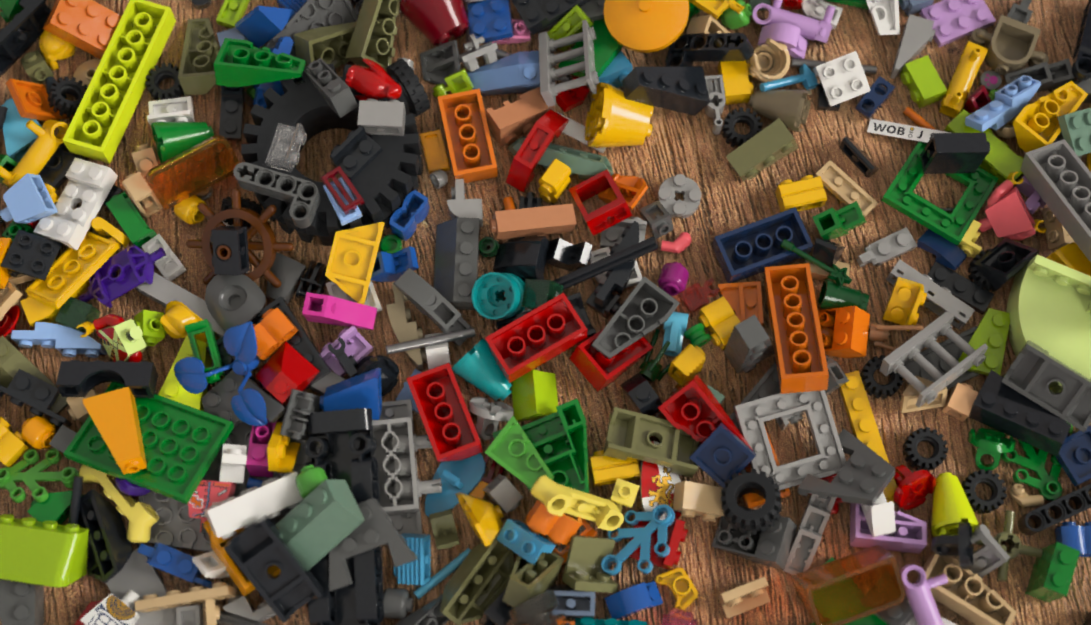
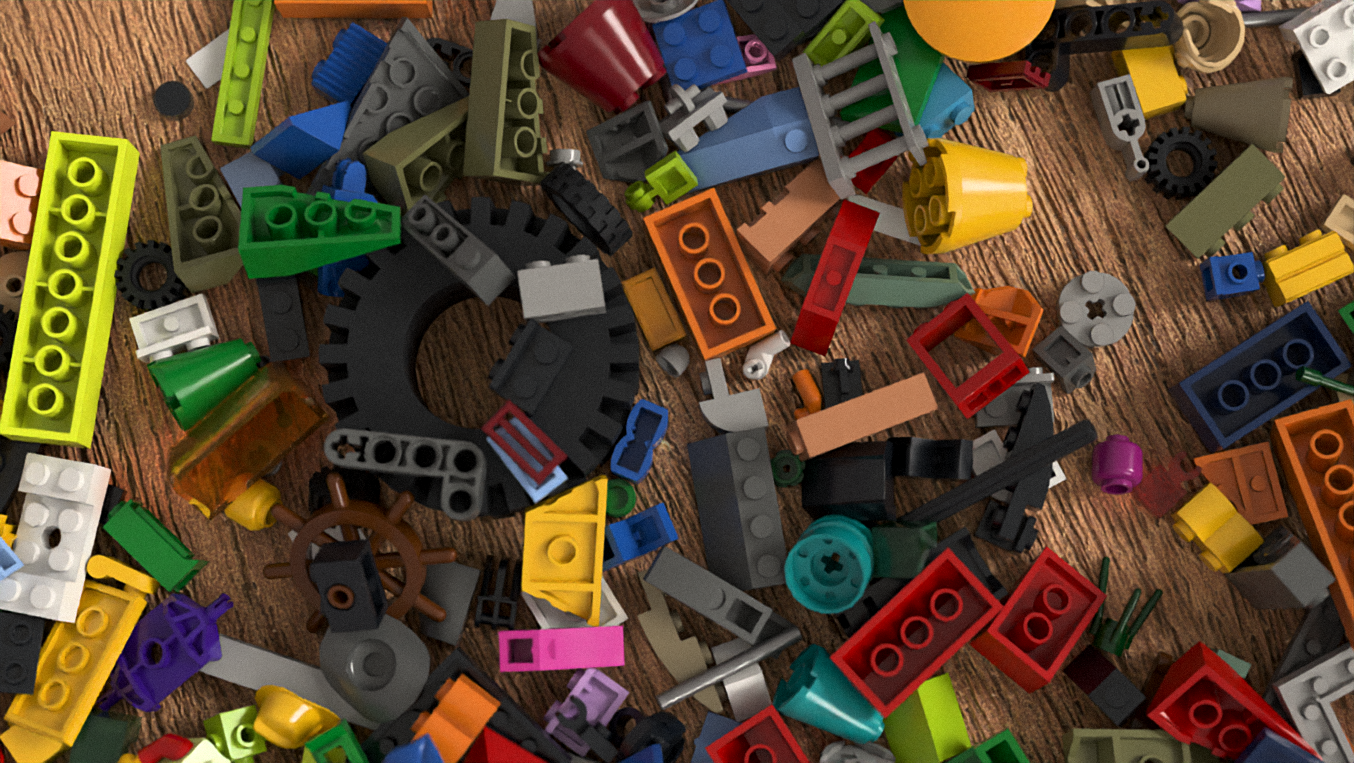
camera: 10 degrees left, 10 degrees up
(142, 194) = (158, 500): tan brick -> none
(145, 158) = (150, 426): tan bracket -> none
(168, 265) = (247, 611): white slope -> none
(285, 147) = (403, 378): clear bracket -> none
(372, 82) = (532, 230): red animal -> none
(488, 185) = (762, 353): none -> white arm
(554, 181) = (878, 332): yellow brick -> none
(639, 314) = (1072, 551): dark grey wedge -> none
(653, 60) = (1008, 76): none -> dark red tile
(668, 88) = (1047, 123): black wedge -> none
(674, 331) = (1136, 549): medium azure piece -> none
(678, 245) = (1111, 401): coral arm -> none
(687, 364) = (1176, 621): yellow brick -> none
(697, 335) = (1179, 560): green wheel -> none
(754, 197) = (1221, 283): none -> blue brick
(806, 76) = (1270, 45): dark azure piece -> none

